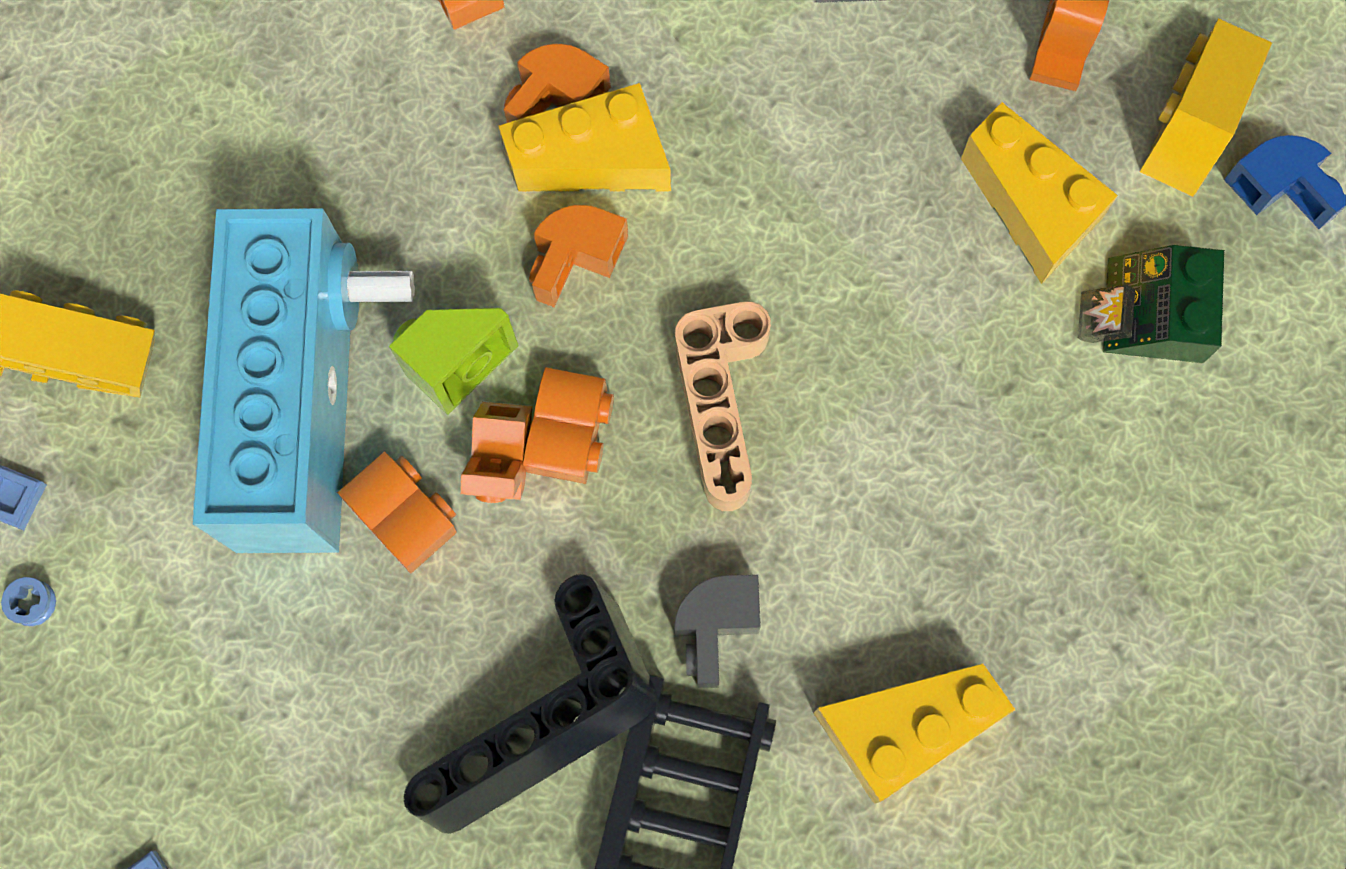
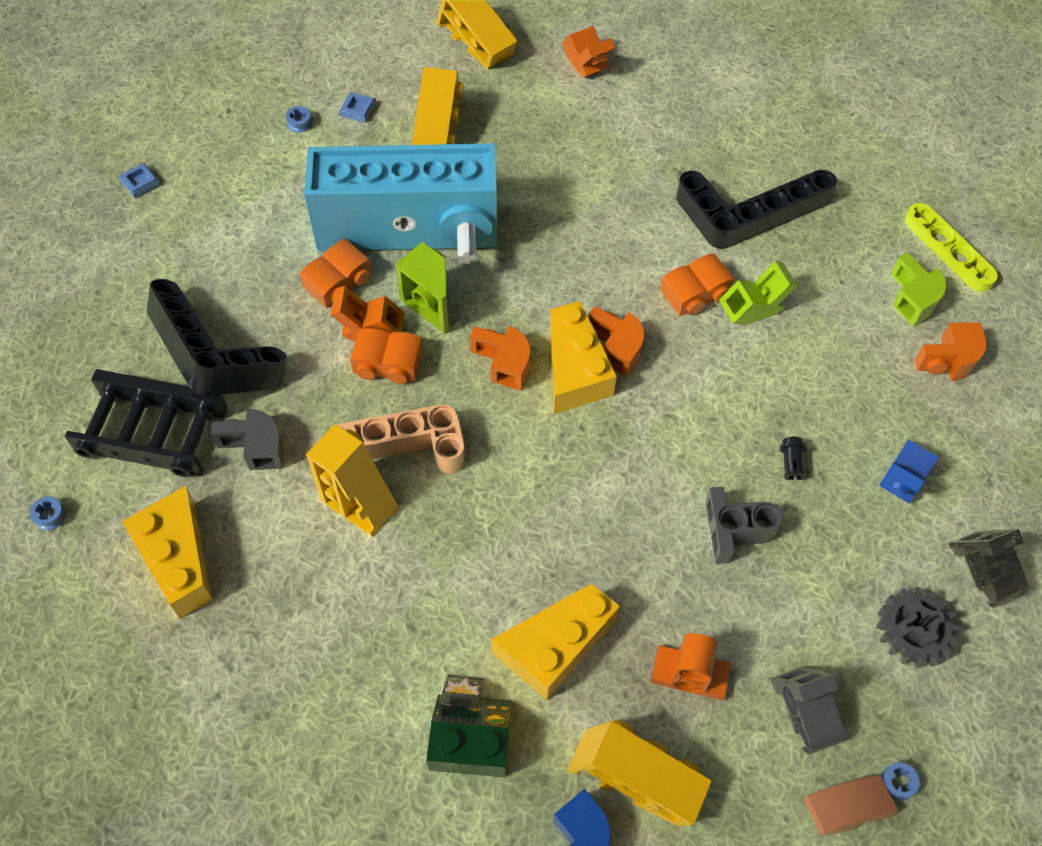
camera: 85 degrees right, 15 degrees down
(810, 459) = (350, 480): none -> yellow wedge

